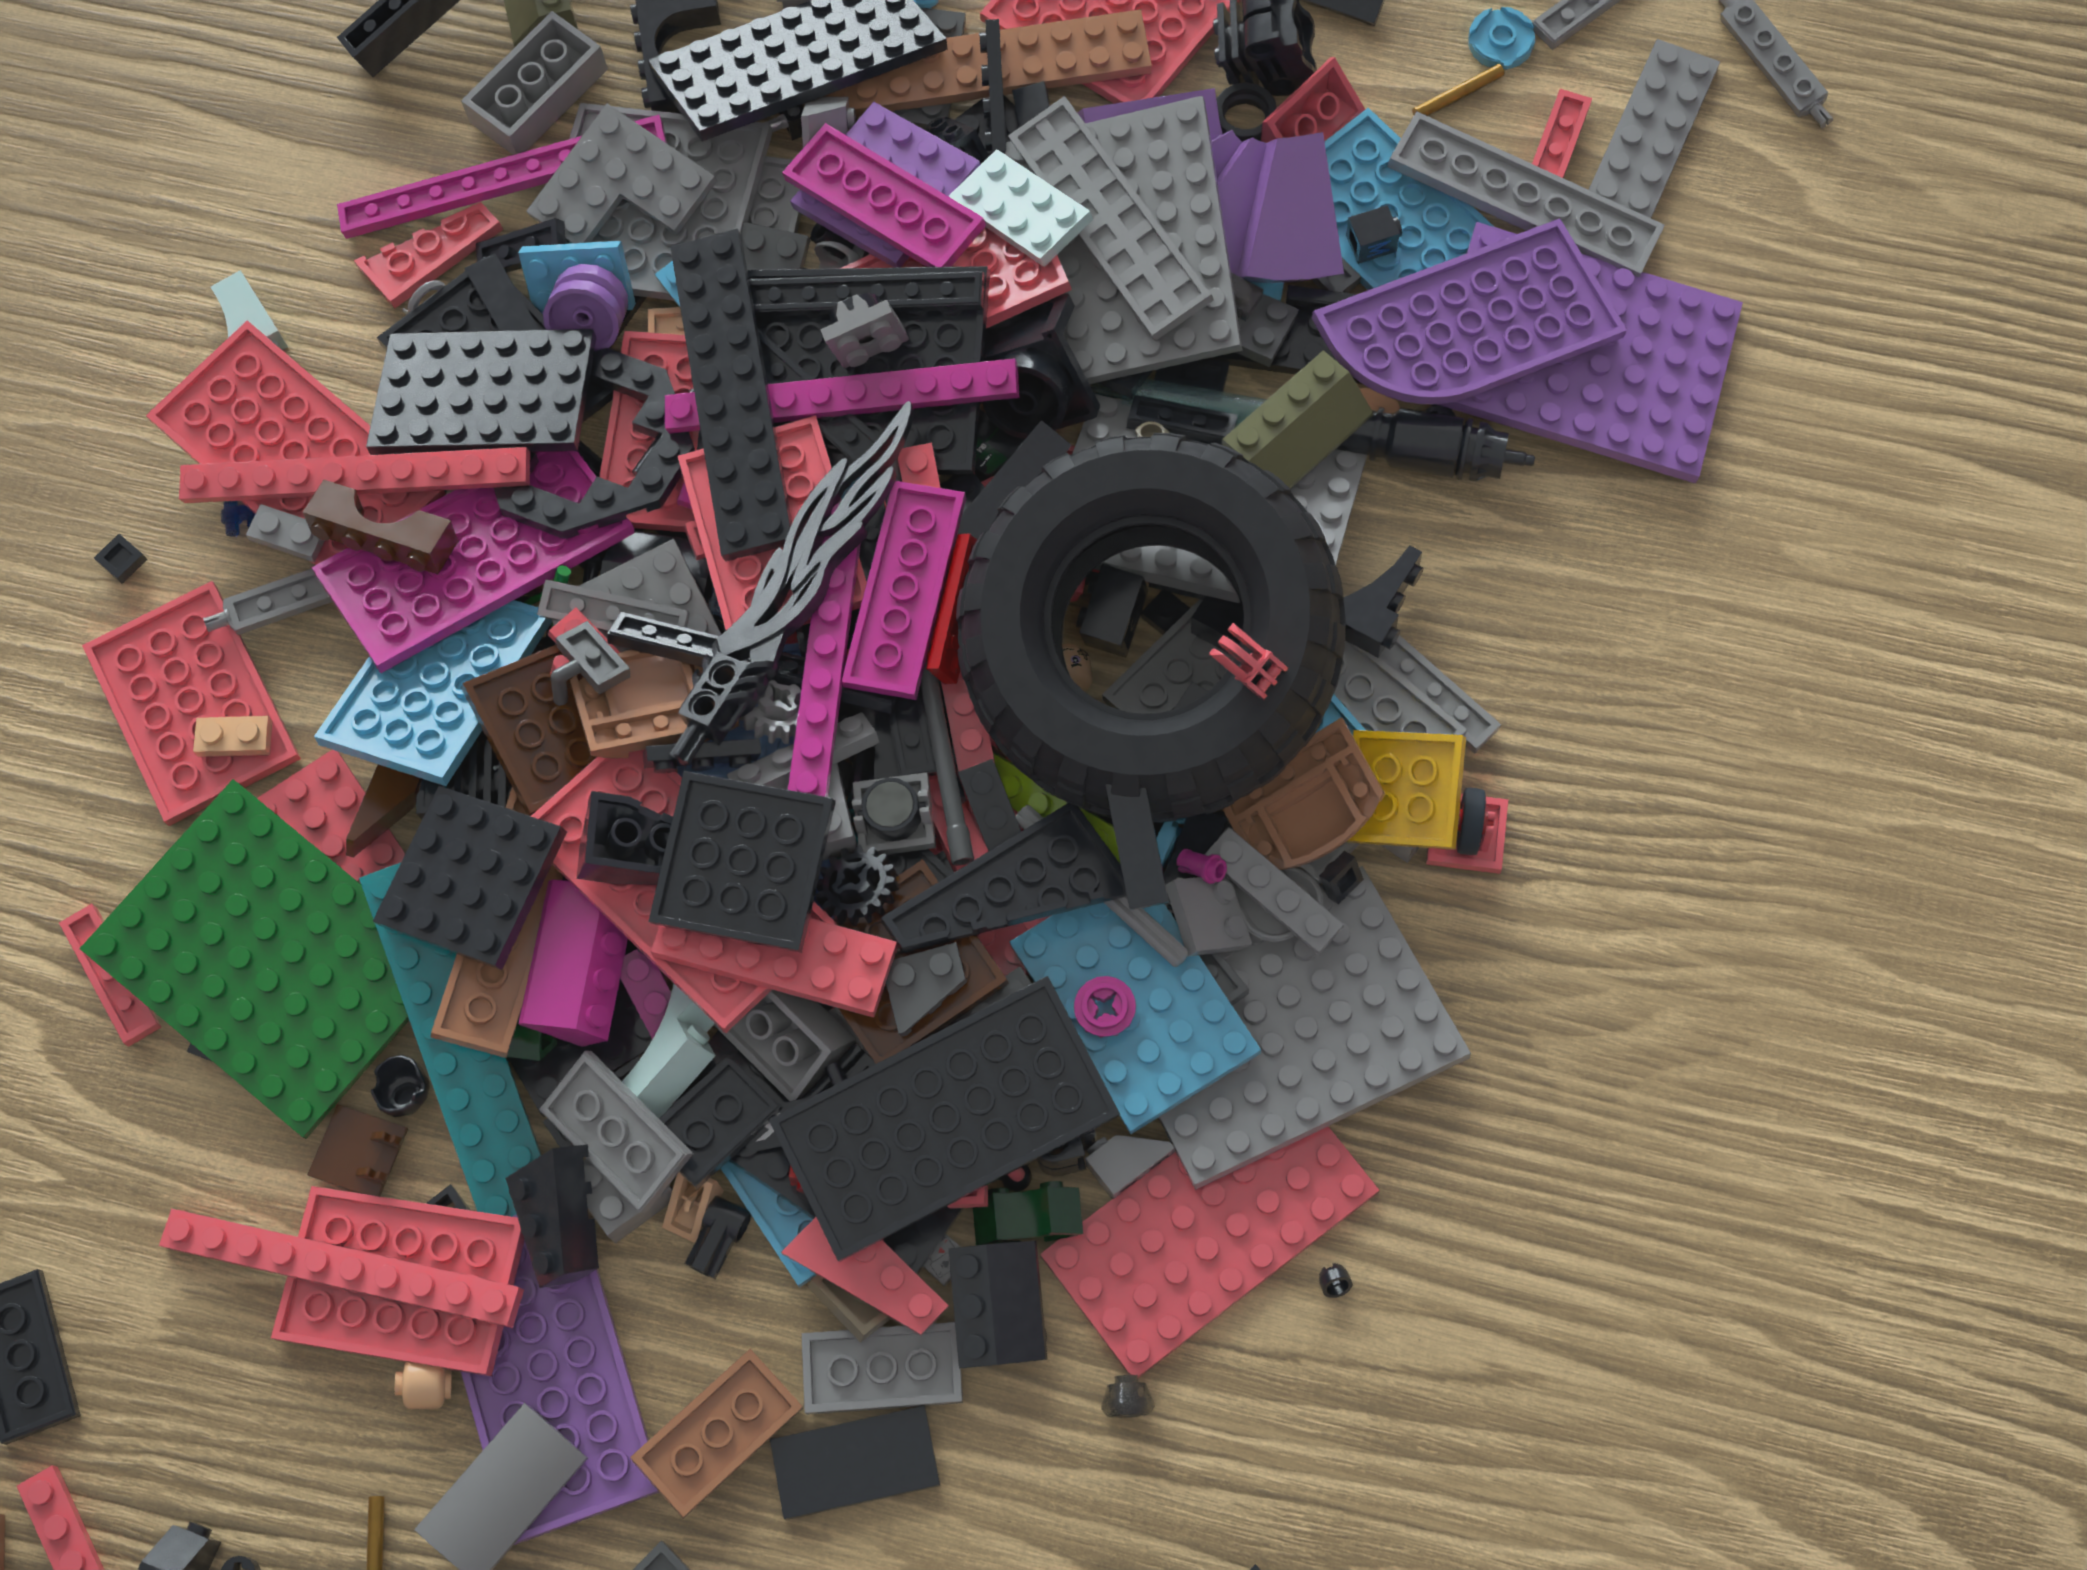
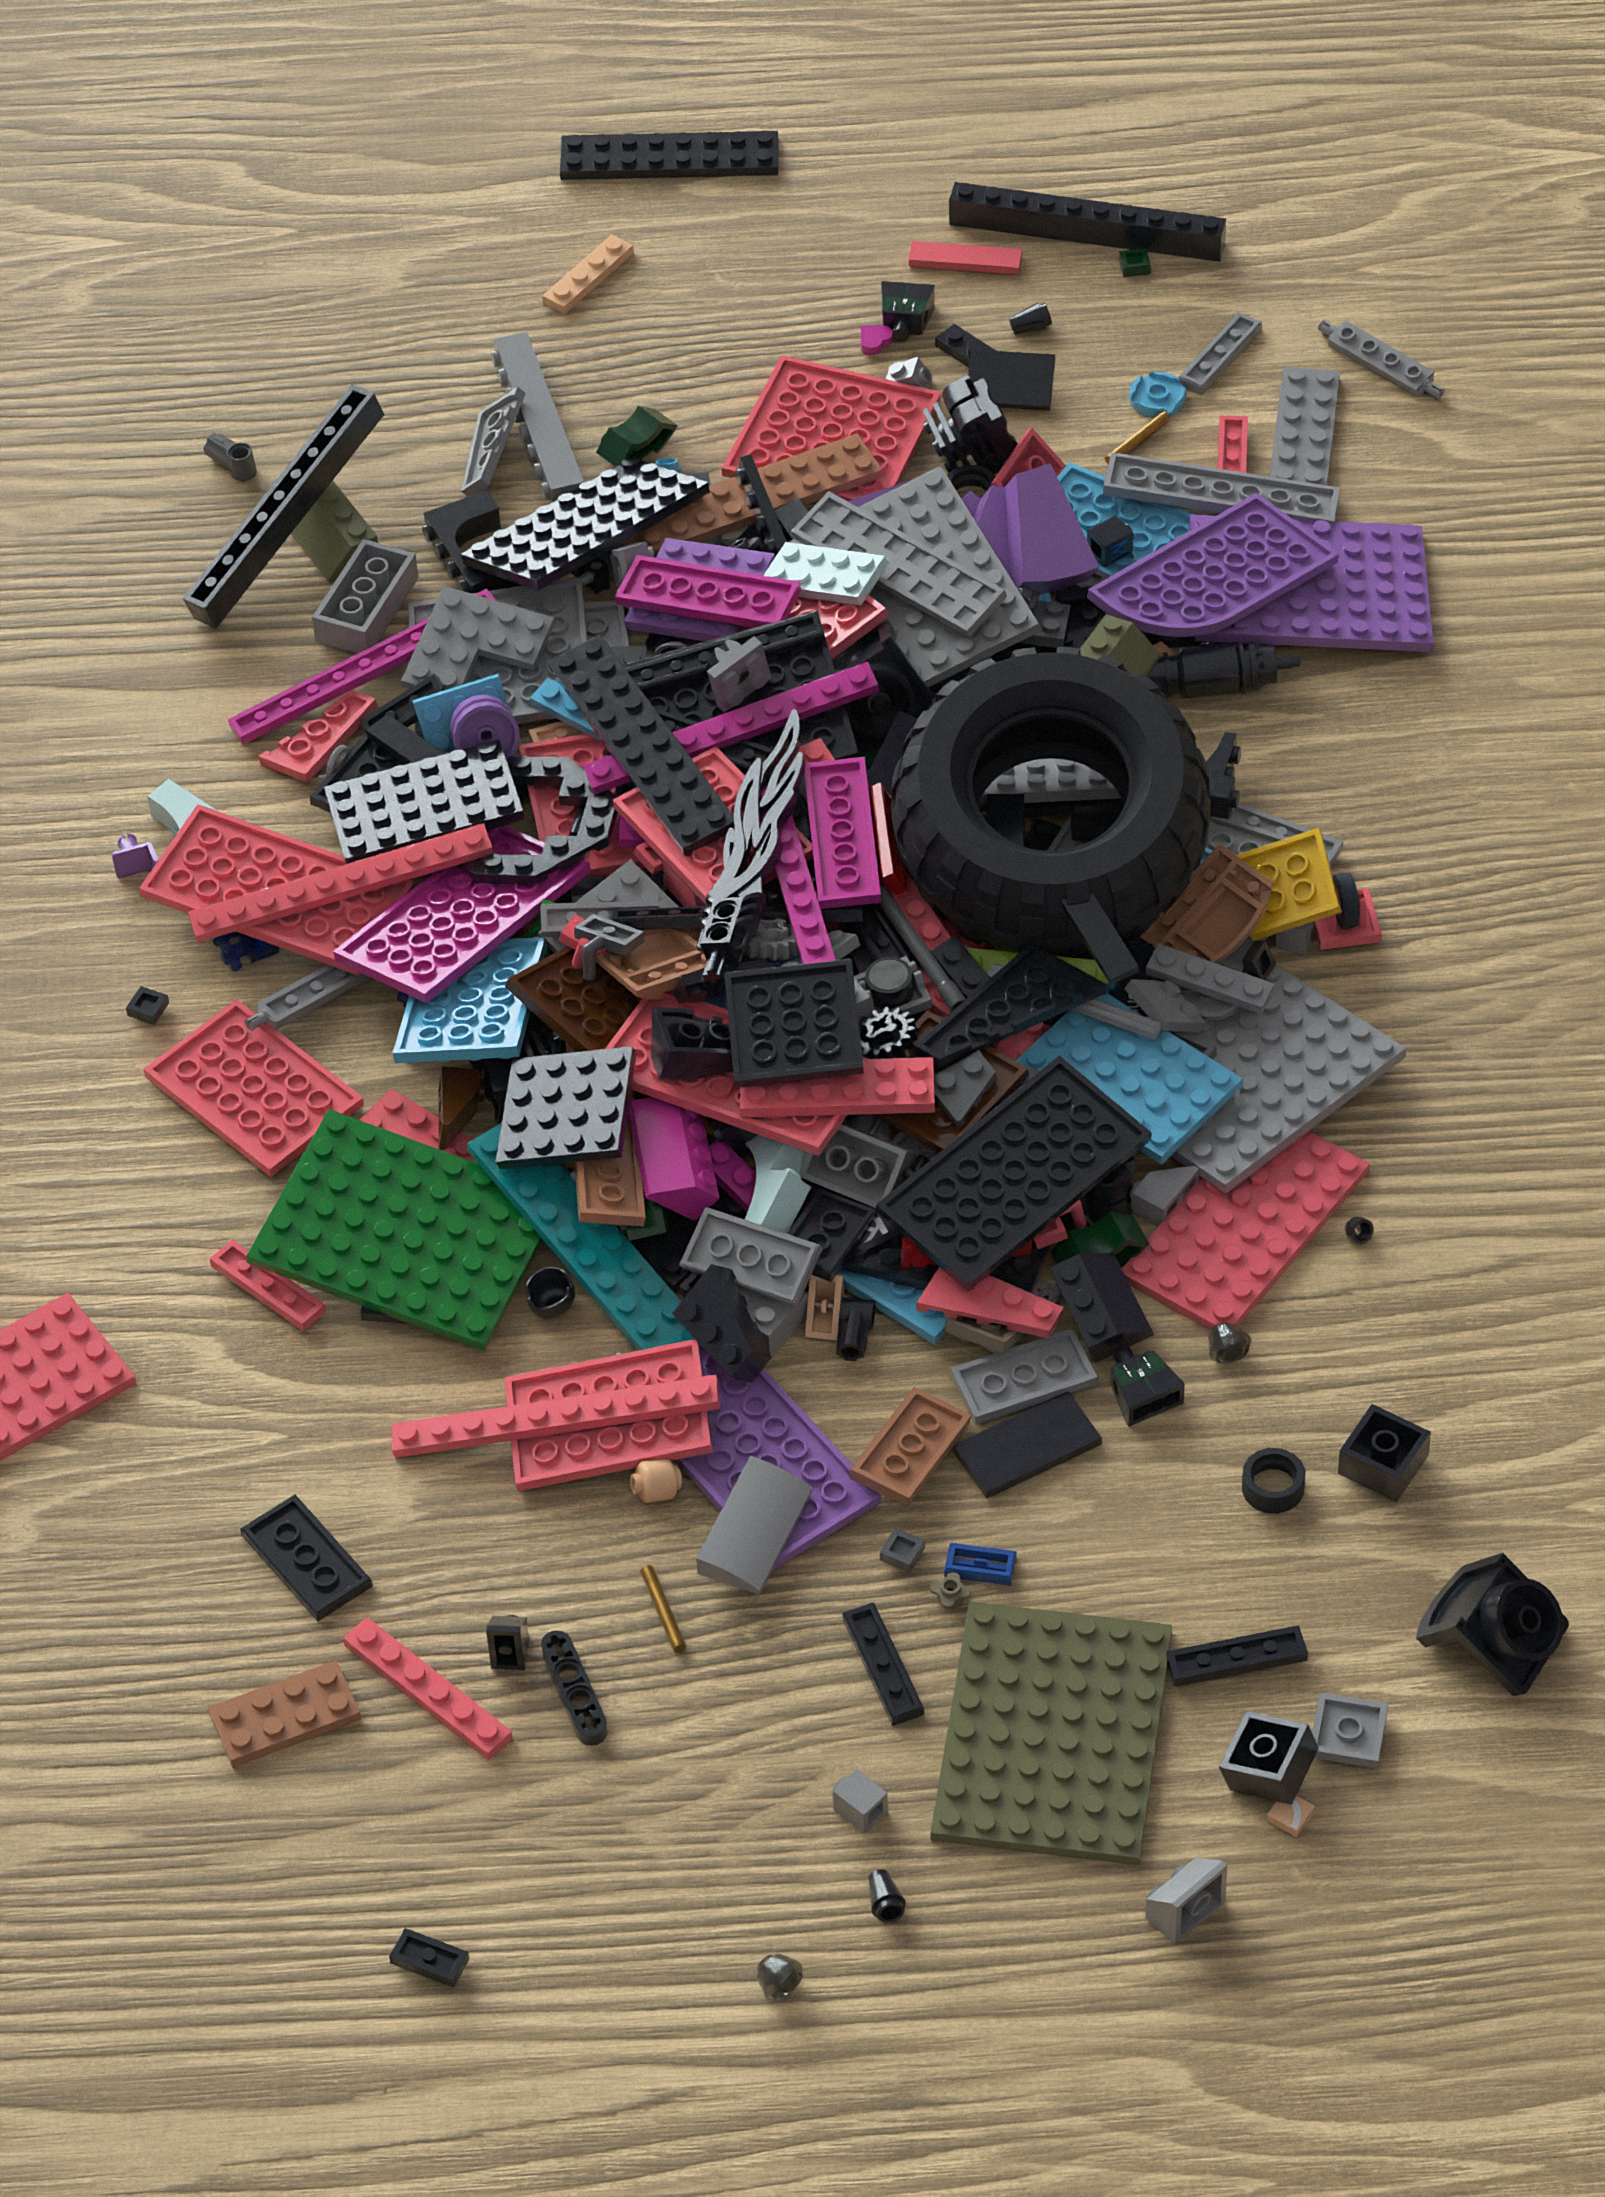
camera: 20 degrees left, 20 degrees down
(176, 358) = (133, 857): none -> medium lavender bracket
(232, 736) = (304, 1095): light nougat plate -> none
(284, 533) = (297, 939): light grey plate -> none
(357, 1151) = (532, 1345): reddish brown plate -> none
(418, 541) = (418, 908): arch -> none
(1010, 1426) = (1144, 1385): none -> black torso
(1103, 989) = (1103, 1066): dark pink gear -> none
(1209, 867) = (1155, 971): dark pink pin -> none
(1251, 663) = (1143, 772): coral arm -> none

